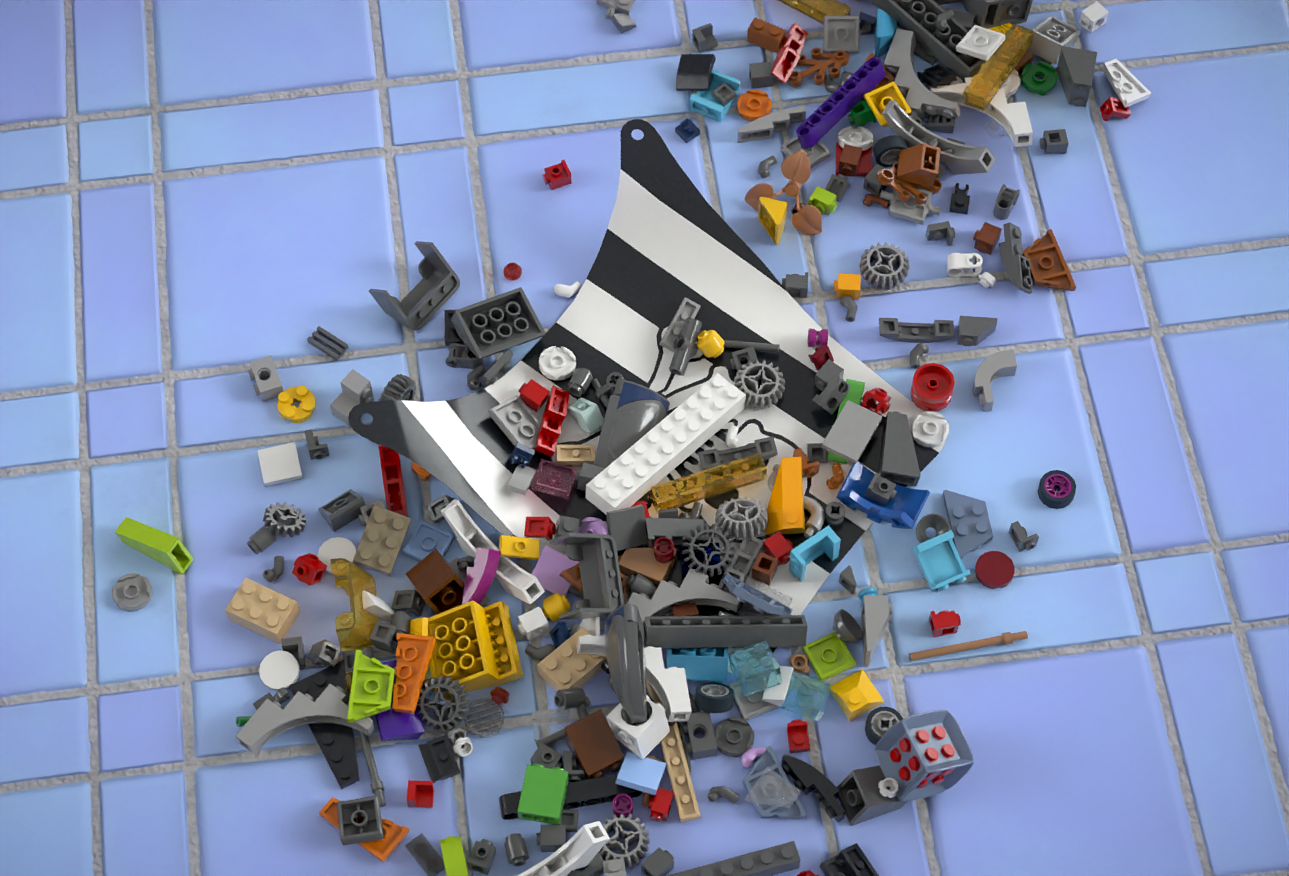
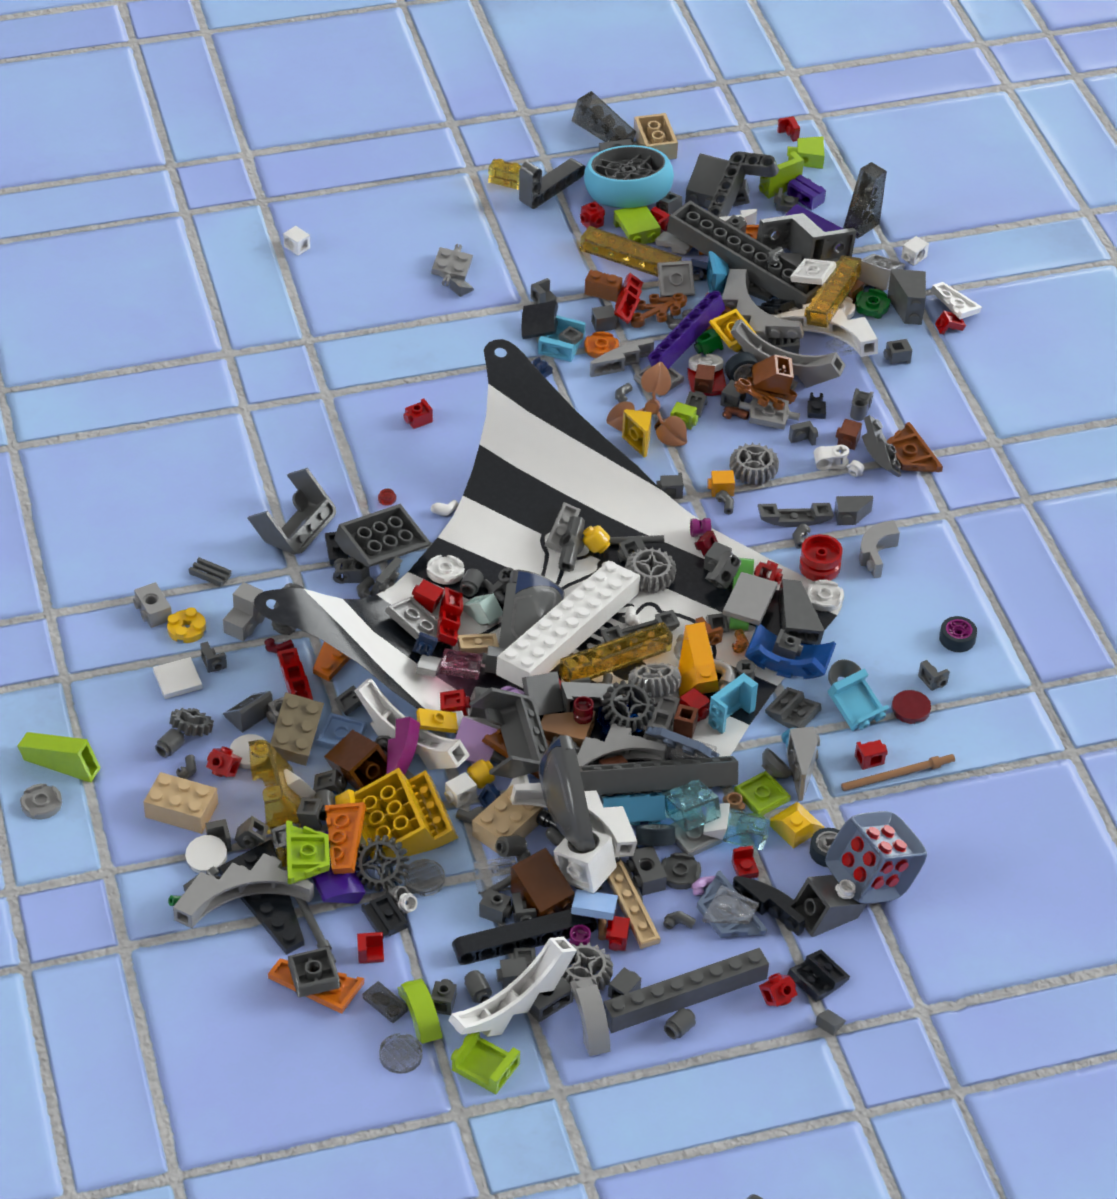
camera: 10 degrees left, 15 degrees down
(499, 695) = (437, 855): clear red plate -> none
(543, 794) = (498, 930): bright green brick -> none
(848, 580) = (769, 726): dark grey slope -> none
(876, 561) = (793, 709): none -> dark grey slope
(967, 521) = (880, 665): sand blue wing -> none

